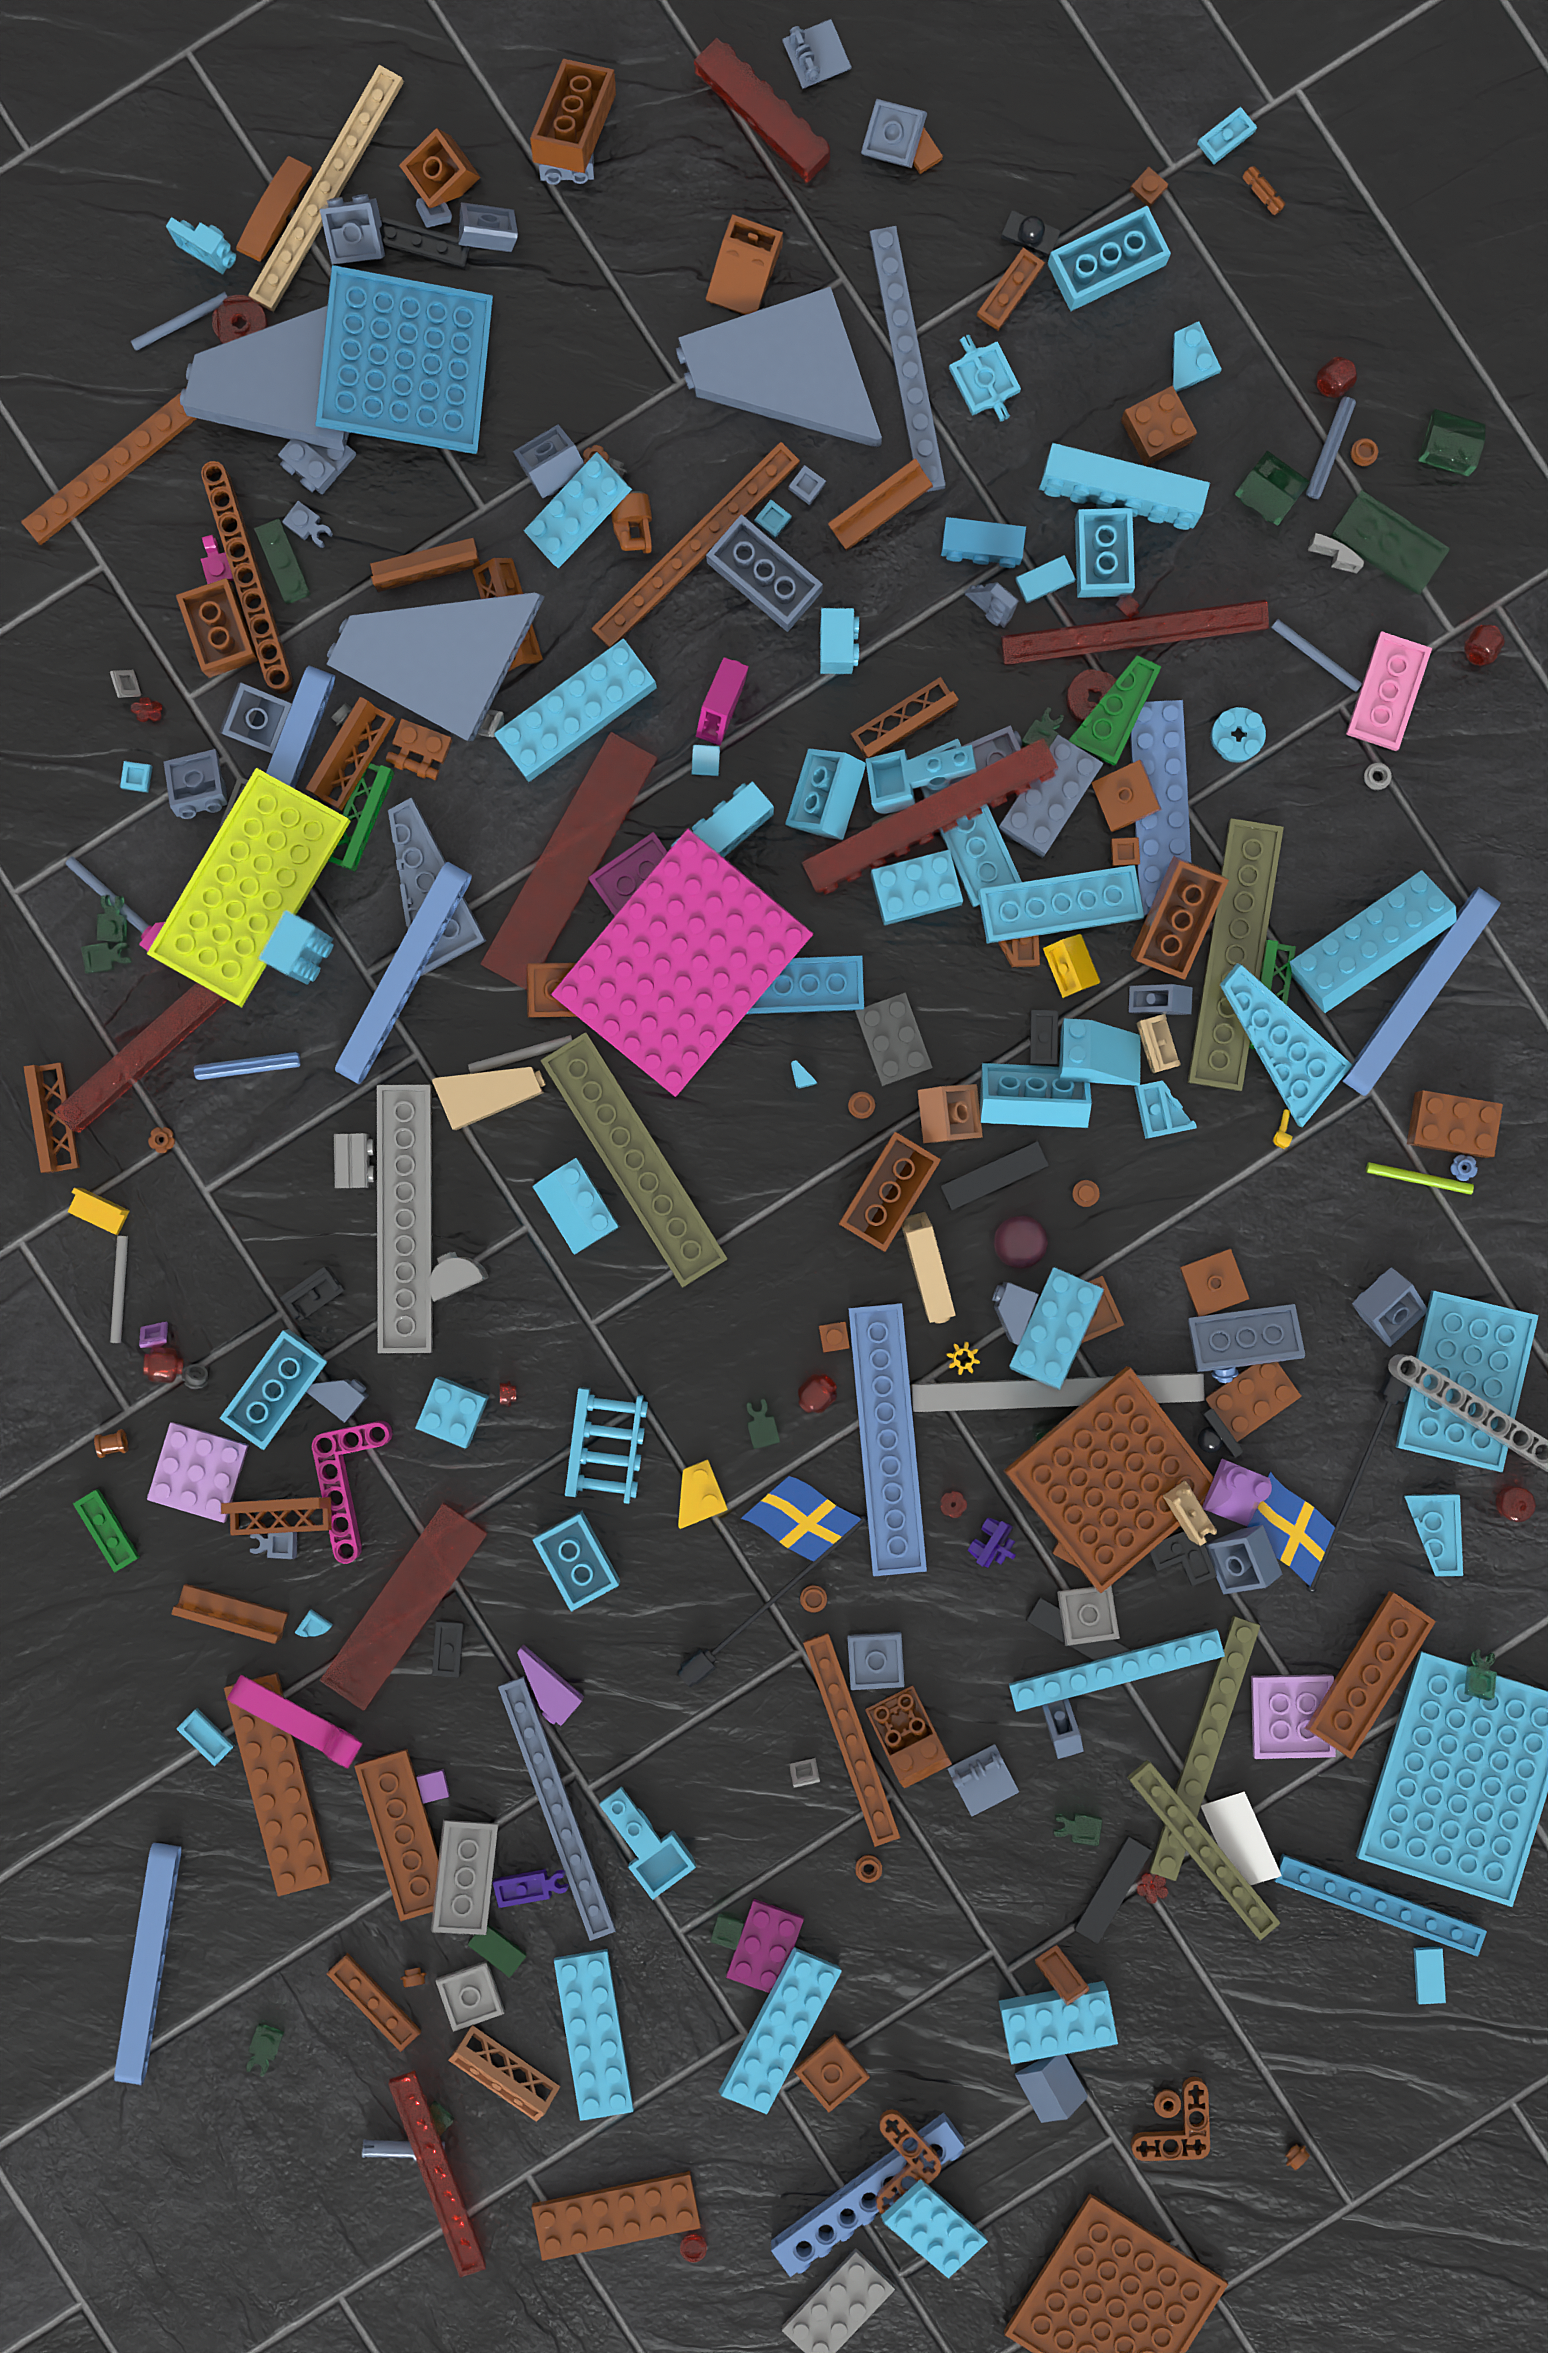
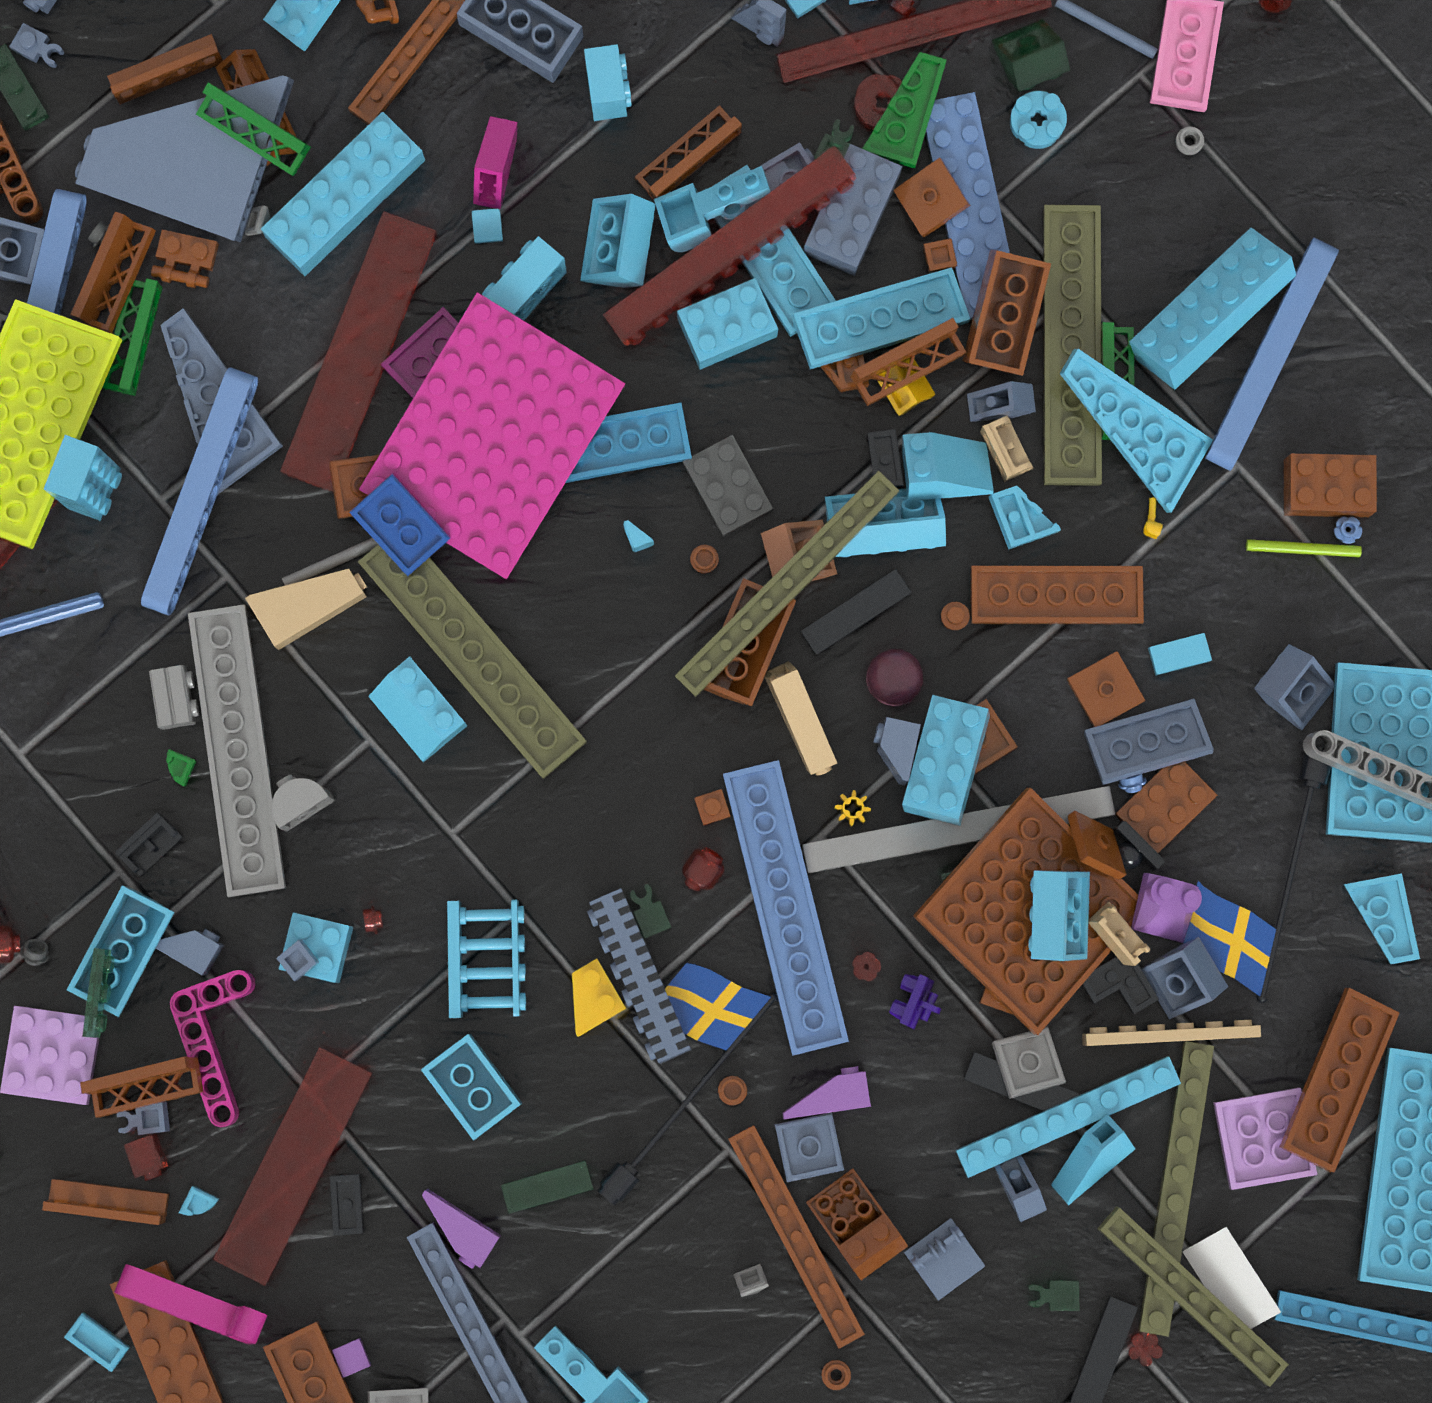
camera: 15 degrees left, 5 degrees down
(248, 1427) = (98, 993): none -> clear green plate
(272, 1578) = (146, 1157): none -> clear red brick
(350, 1225) = (180, 766): none -> green tile
(434, 1424) = (297, 960): none -> sand blue plate
(502, 631) = (257, 120): none -> green fence
(584, 1033) = (400, 524): none -> blue tile
(632, 1660) = (547, 1187): none -> clear green plate
(744, 1483) = (639, 976): none -> sand blue brick
(909, 1617) = (837, 1094): none -> medium lavender slope
(935, 1144) = (787, 583): none -> olive plate
(1068, 945) = (904, 352): none -> dark orange fence
(1132, 1711) = (1092, 1158): none -> medium azure slope
(1138, 1489) = (1059, 915): none -> medium azure slope
(1182, 1428) = (1096, 845): none -> dark orange plate
(1183, 1188) = (1057, 595): none -> dark orange plate
(1235, 1609) = (1184, 1032): none -> tan plate
(1242, 672) = (1032, 55): none -> clear green slope
(1288, 1260) = (1179, 654): none -> medium azure tile

